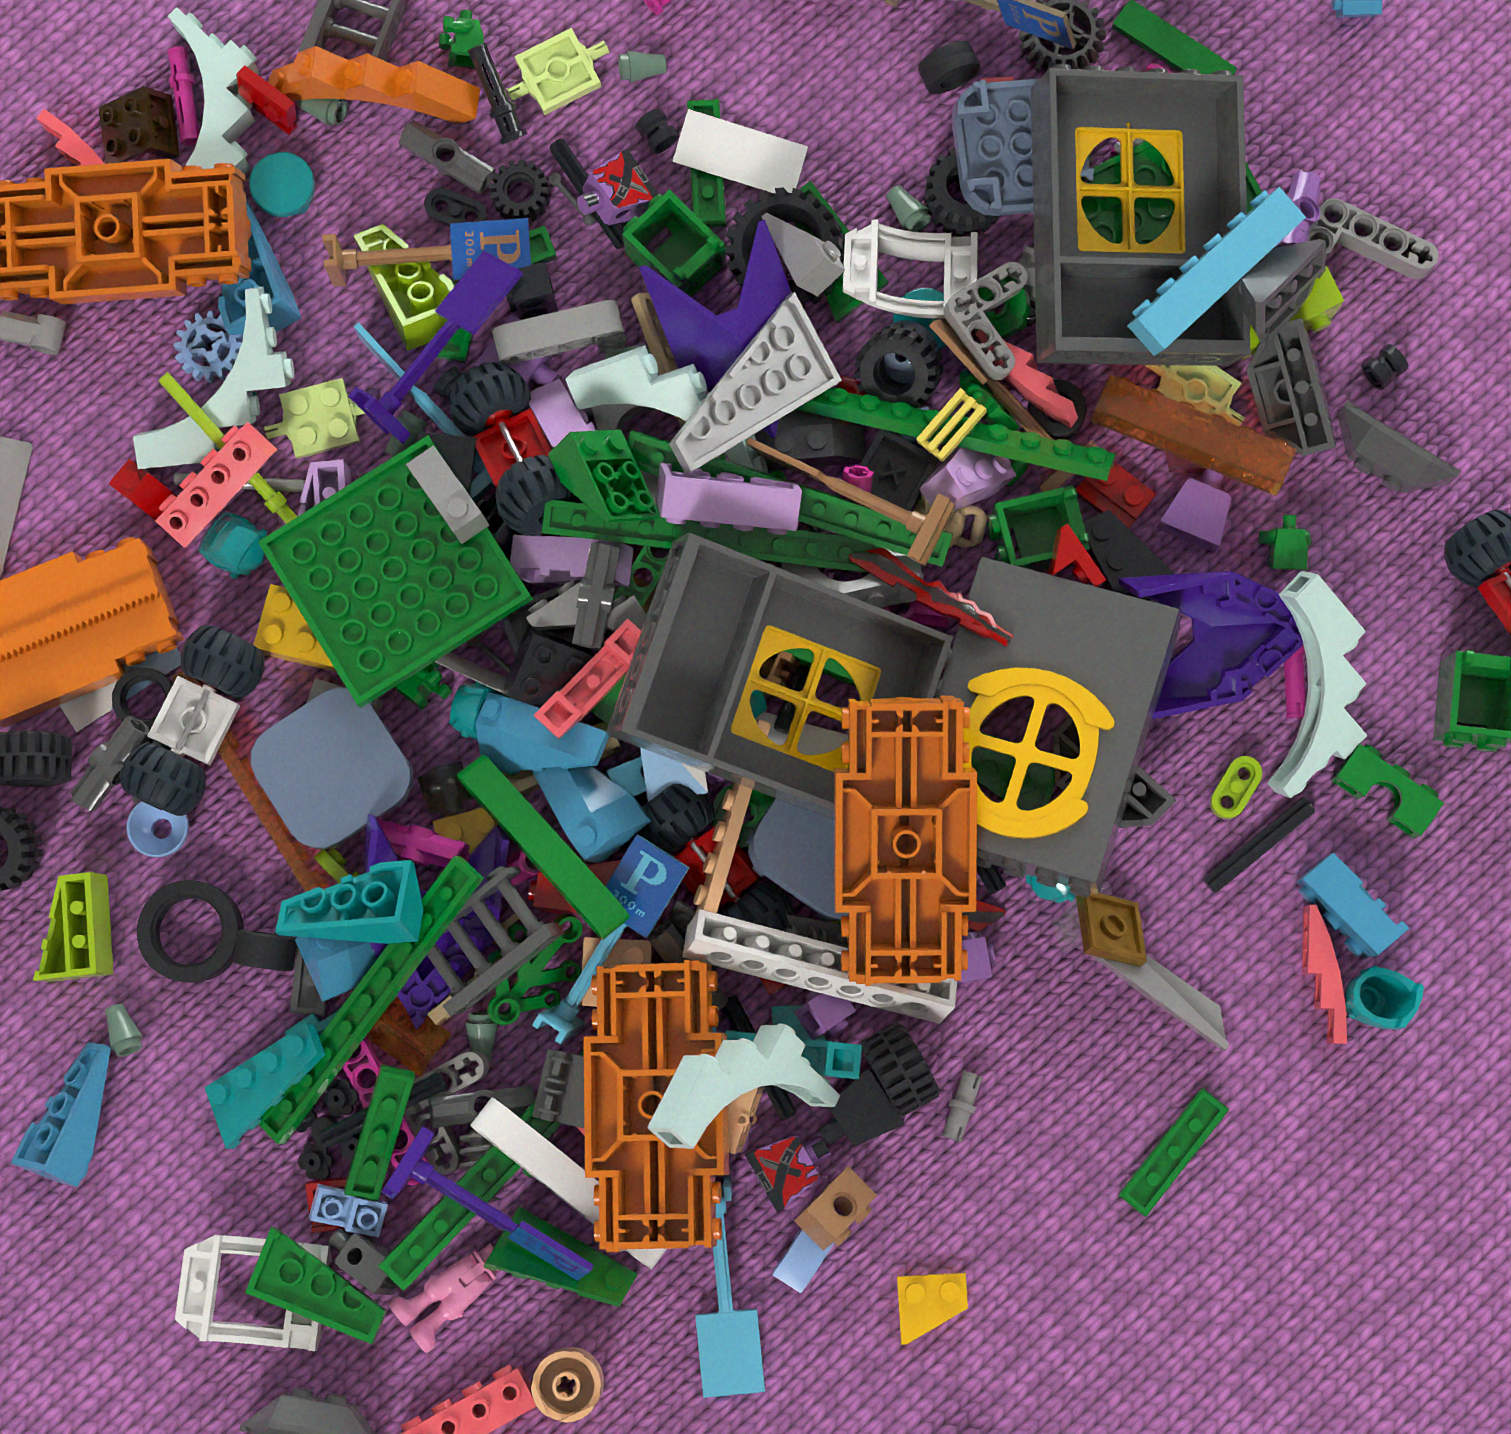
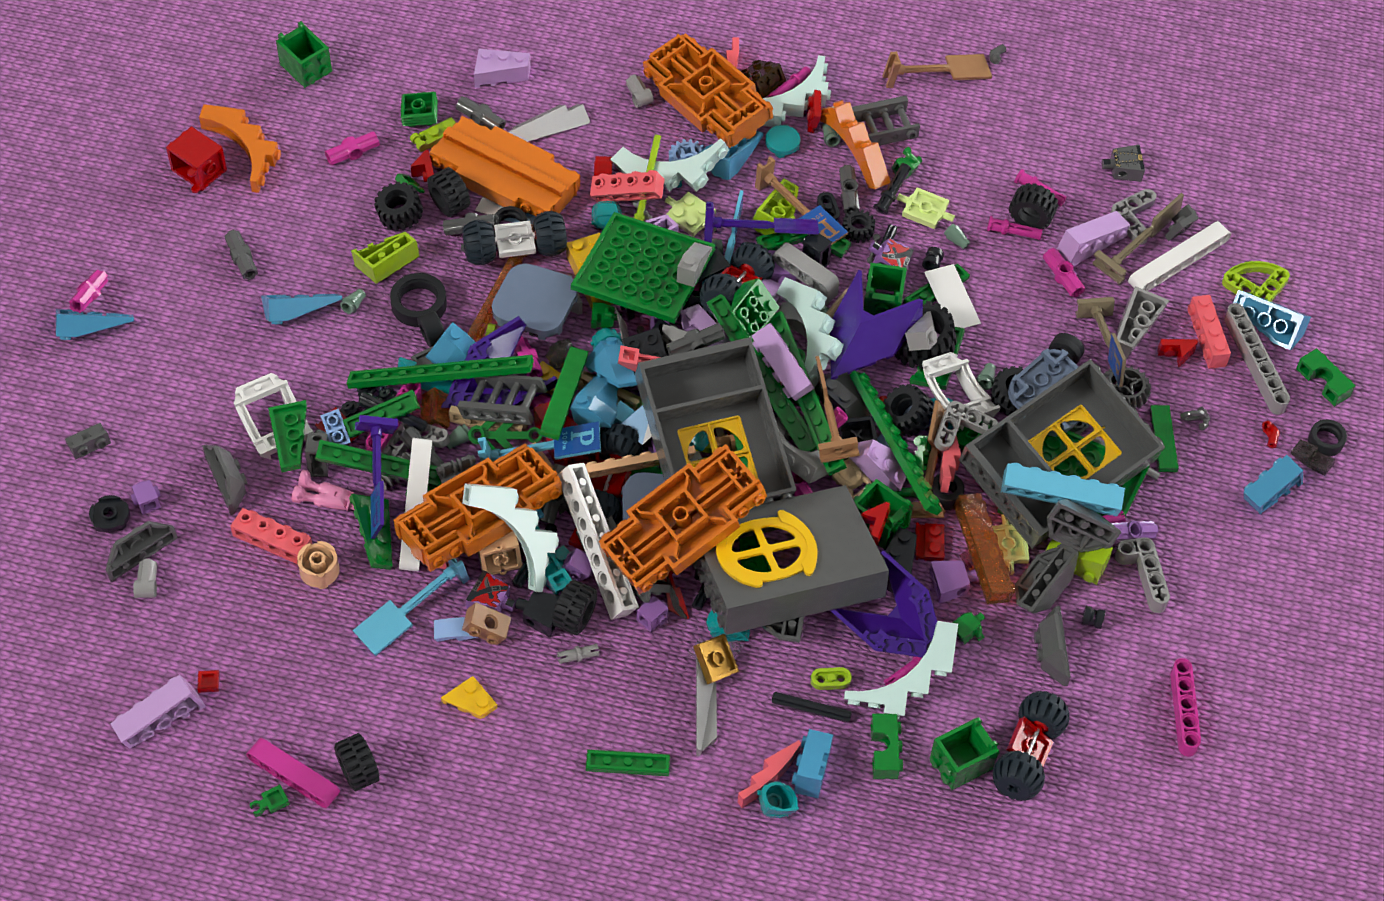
camera: 45 degrees right, 25 degrees down
(142, 836) = (454, 254): light blue piece -> none
(259, 1083) = (370, 360): teal wing -> none
(364, 908) = (479, 337): teal wedge -> none
(768, 380) = (852, 349): light grey wing -> none
(932, 595) = (810, 477): red sword -> none
(969, 403) = (892, 434): light yellow tile -> none

